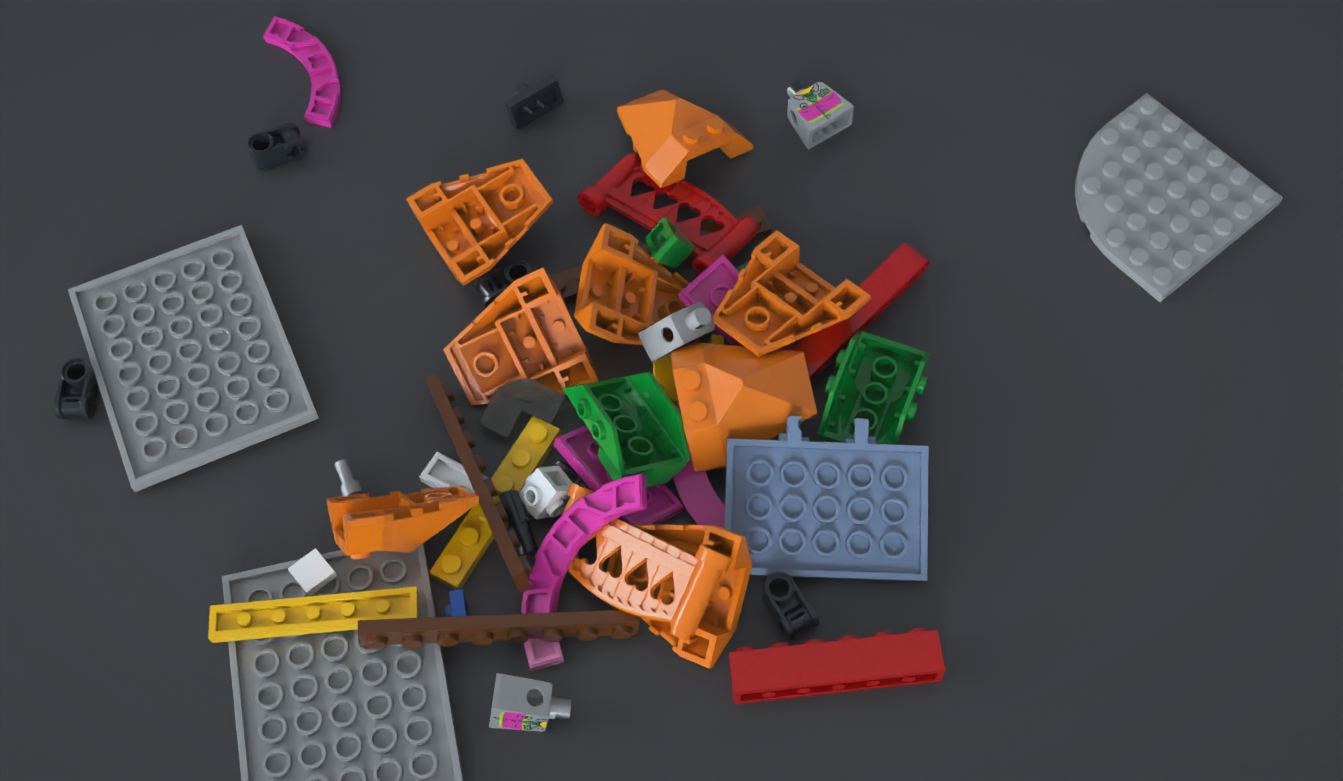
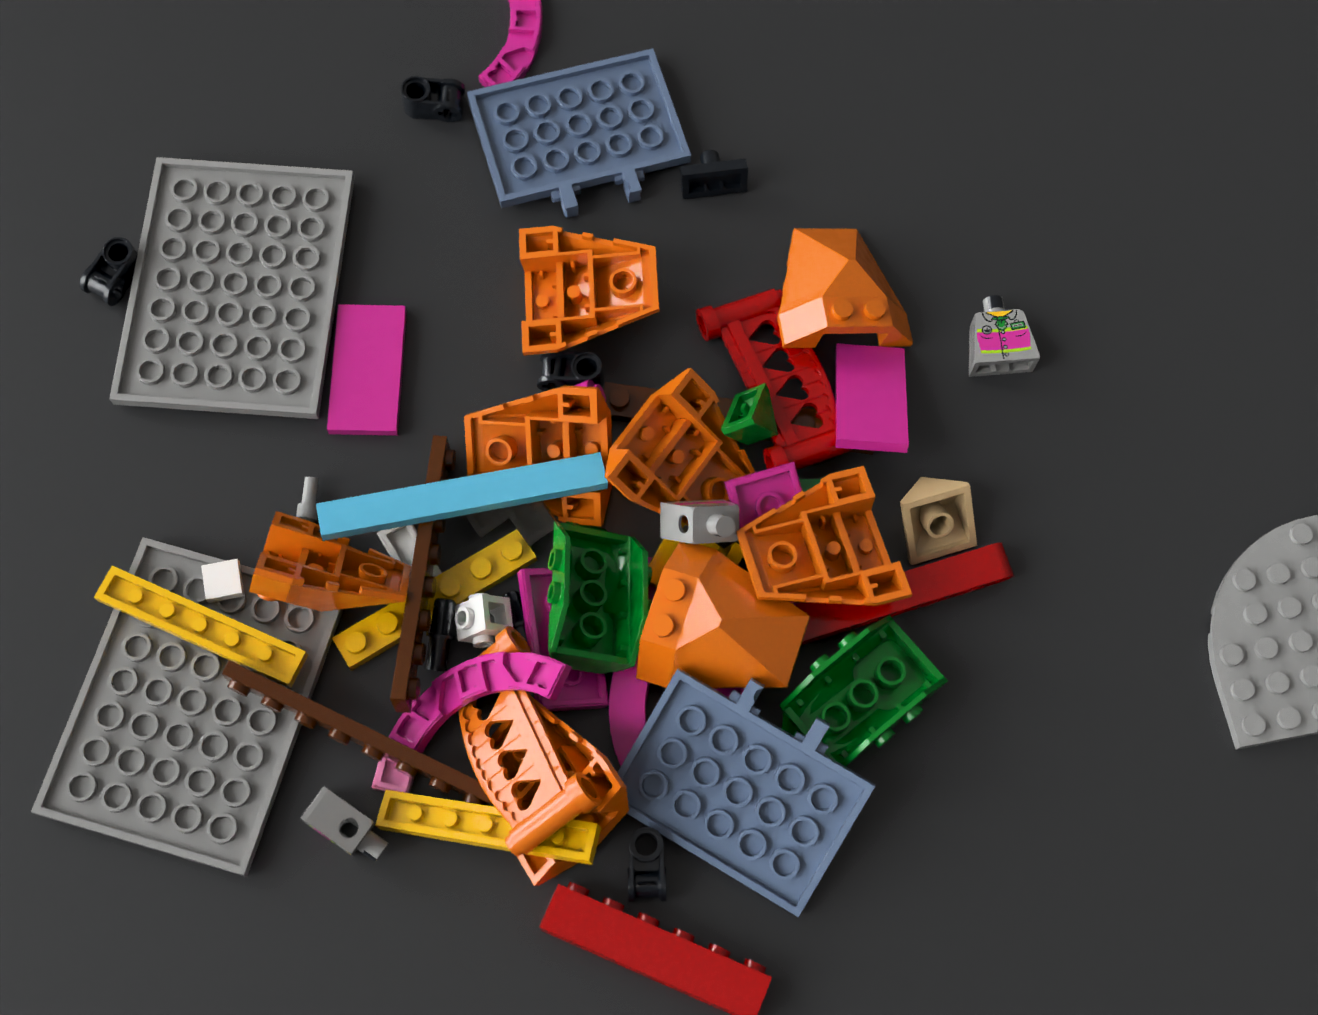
camera: 25 degrees right, 10 degrees up
(339, 363) = (367, 370): none -> dark pink tile
(407, 117) = (579, 130): none -> sand blue hinge
(458, 604) = (336, 692): blue plate -> none
(474, 408) = (461, 496): none -> medium azure tile
(639, 644) = (478, 826): none -> yellow plate
(749, 191) = (871, 398): none -> dark pink tile
(851, 247) = (937, 519): none -> tan slope

